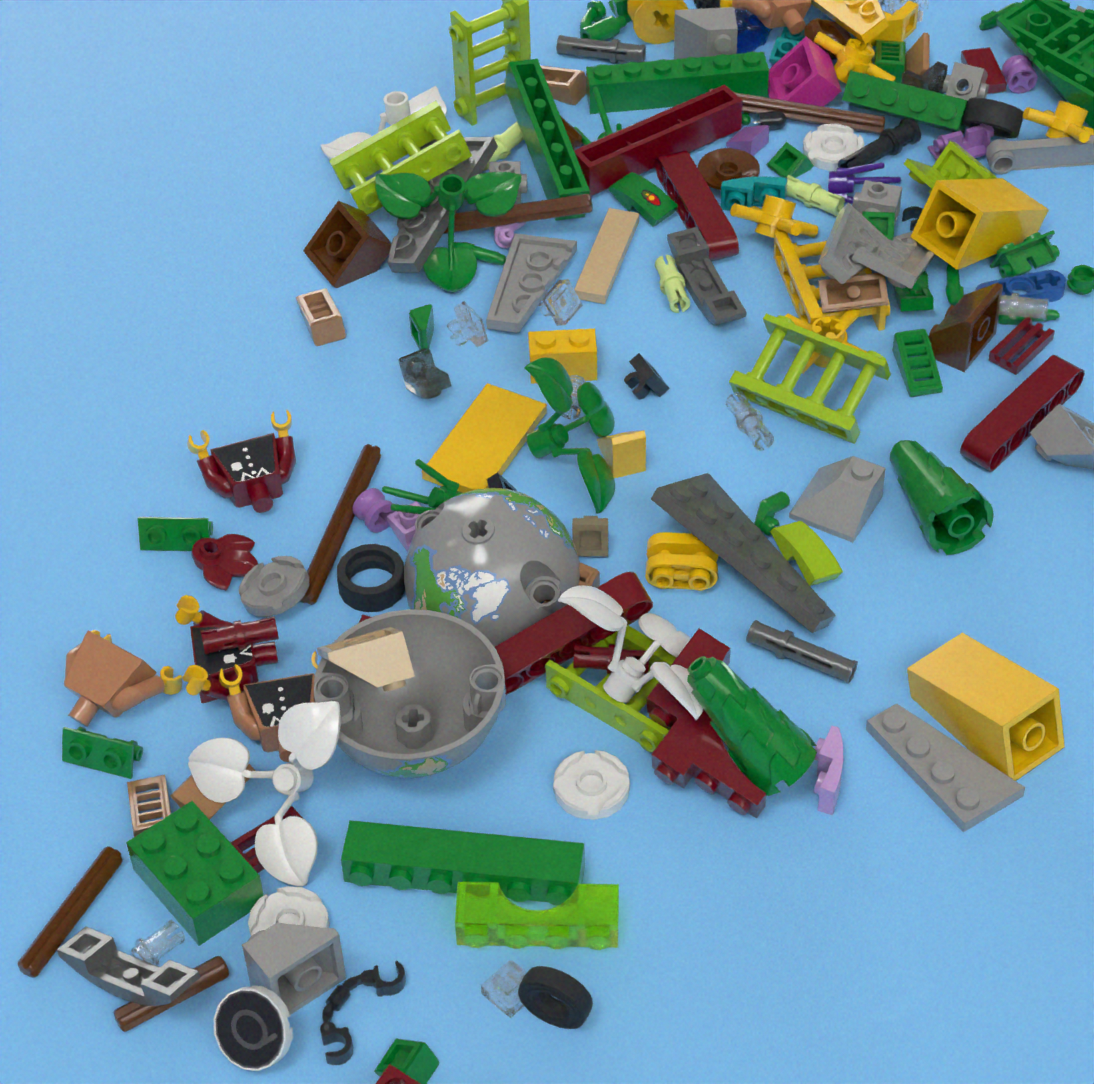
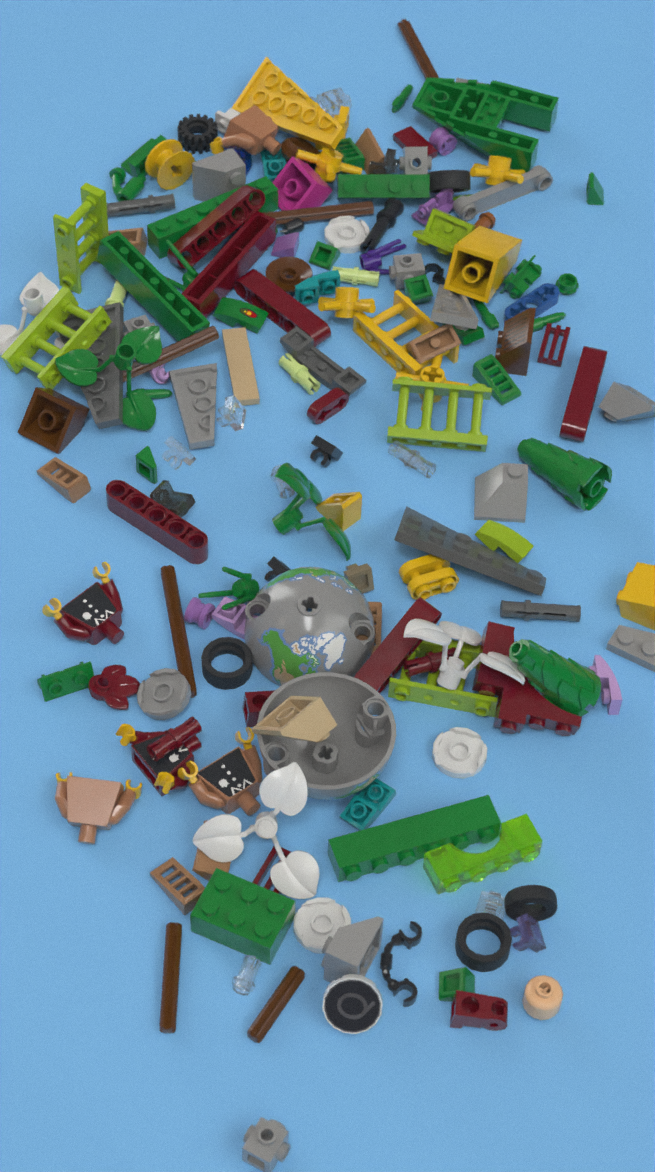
camera: 30 degrees left, 5 degrees up
(100, 752) = (116, 860): green hinge -> none
(123, 975) = (242, 1005): dark grey slope -> none
(393, 394) = (157, 522): none -> dark red beam
(437, 804) = (368, 805): none -> teal slope
(473, 1050) = (487, 922): none -> black tyre
(486, 438) = (241, 534): yellow tile -> none
(535, 1036) = (530, 934): none -> clear purple tile
(572, 348) = (257, 451): yellow slope -> none
(682, 92) = (226, 225): none -> dark red beam
(682, 328) = (327, 405): none -> dark red beam
(767, 508) = (461, 520): green arm -> none
(847, 234) = (418, 308): light grey wing -> none
(1020, 177) = (486, 220): none -> dark orange pin
(1023, 307) = (547, 317): clear pin -> none

